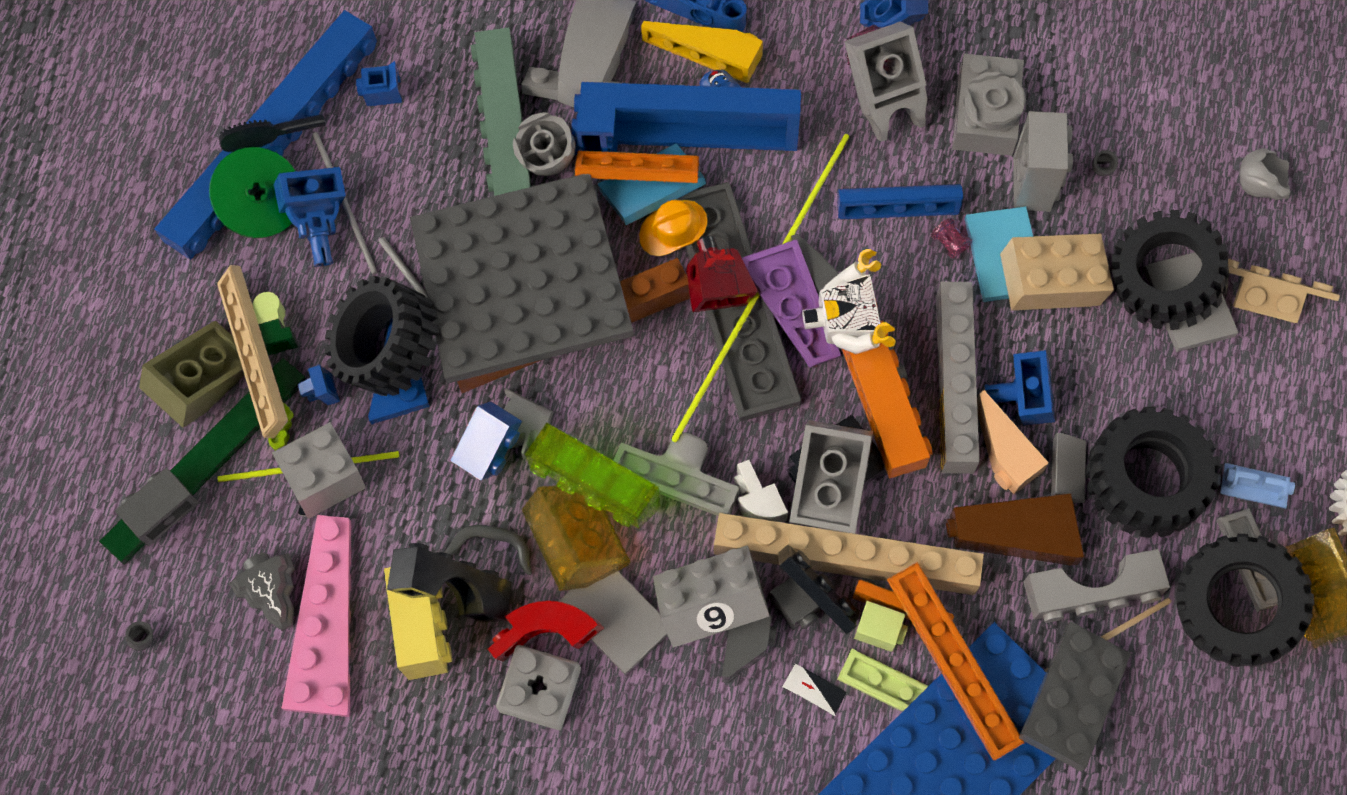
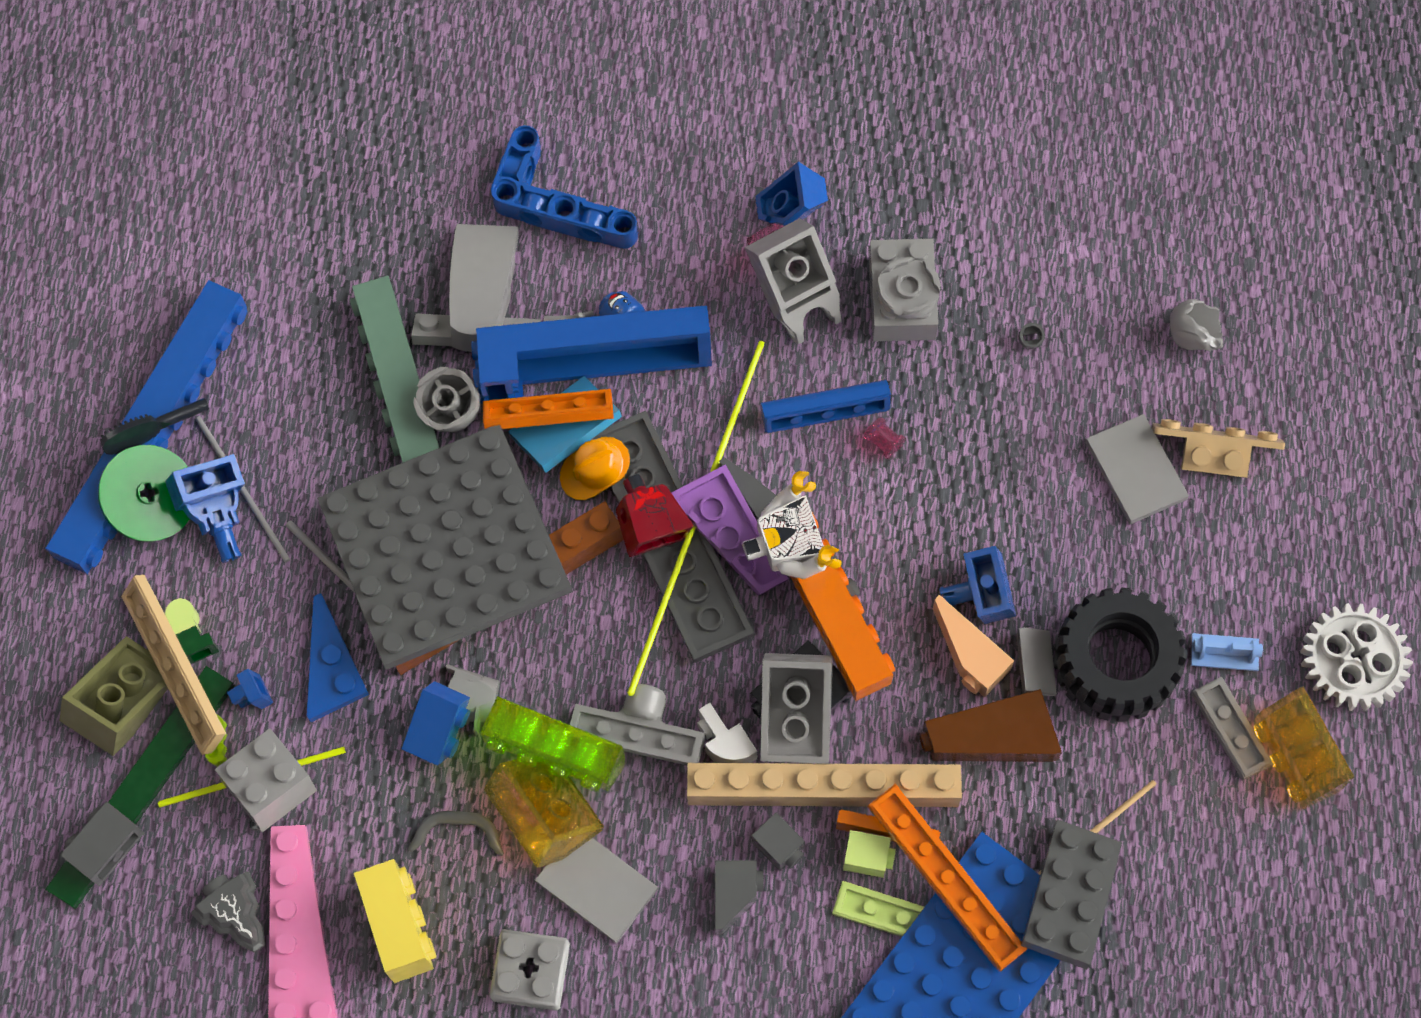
camera: 10 degrees left, 0 degrees up
(135, 632) = (102, 976): dark grey hinge -> none
(358, 329) = (282, 624): black tyre -> none
(379, 85) = (263, 365): blue window -> none
(421, 573) = (396, 872): black arch -> none
(542, 618) = (525, 897): red arch -> none
(708, 46) = (609, 267): yellow slope -> none
(710, 596) = (691, 850): light grey brick -> none
(814, 689) = (811, 928): sticker -> none
(818, 588) = (799, 824): black plate -> none
(957, 378) = (910, 585): light grey brick -> none
(989, 236) = (942, 446): medium azure tile -> none
(1041, 160) = (965, 346): light grey brick -> none
(1056, 271) = (996, 459): tan brick -> none
(1056, 594) = (1039, 794): light grey arch -> none
(1177, 304) = (1119, 478): black tyre -> none
(1253, 554) = (1225, 725): black tyre -> none

